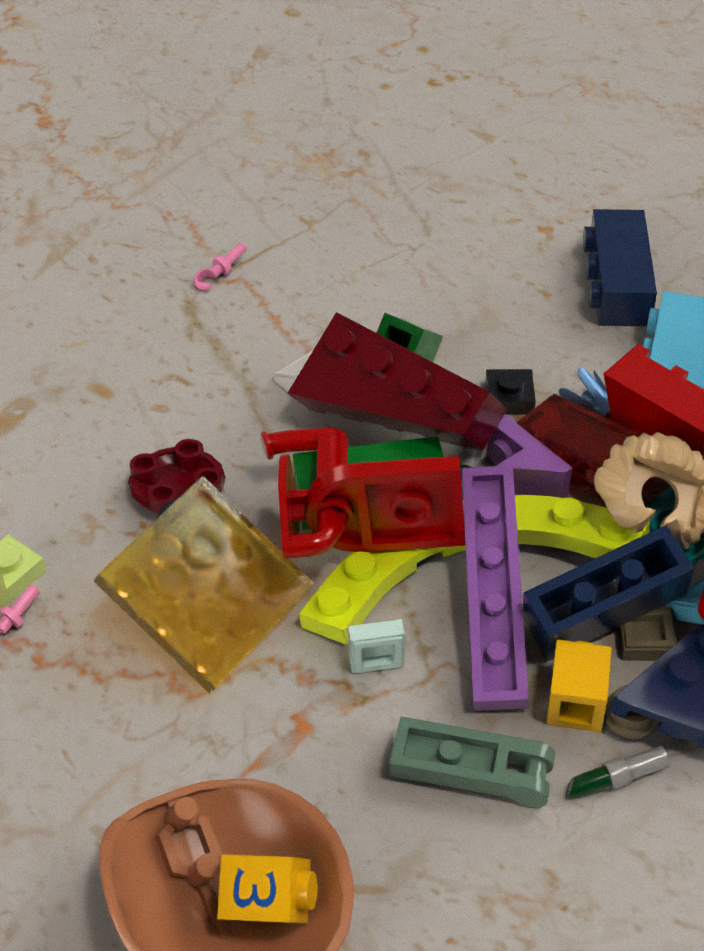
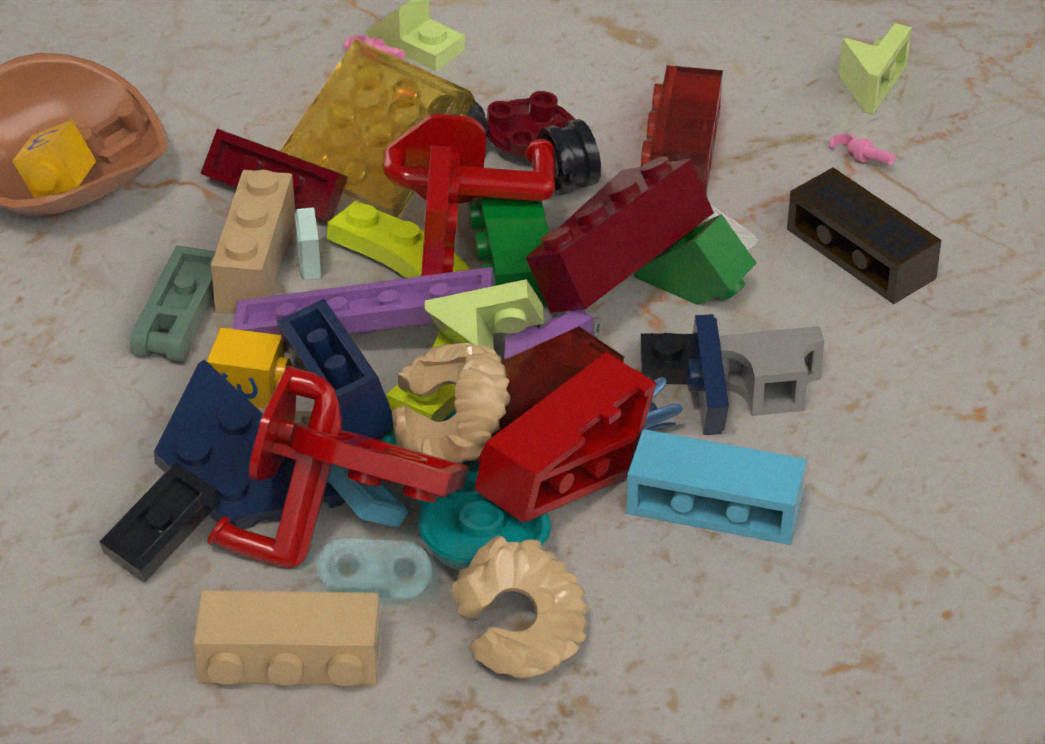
camera: 90 degrees right, 5 degrees down
(114, 244) = (874, 69): none -> yellowish green slope
(196, 365) = (685, 118): none -> clear red brick
(238, 439) = (574, 155): none -> black wheel
(255, 688) = (312, 184): none -> dark red plate
(352, 264) = (863, 235): none -> dark brown brick
(376, 686) = (253, 239): none -> tan brick
(531, 320) = (773, 367): none -> light grey brick
(535, 474) = (486, 311): none -> yellowish green slope
(556, 349) = (707, 375): none -> dark blue plate
(618, 772) = (154, 397): light grey piece -> none
(619, 267) = (884, 452): dark blue brick -> none

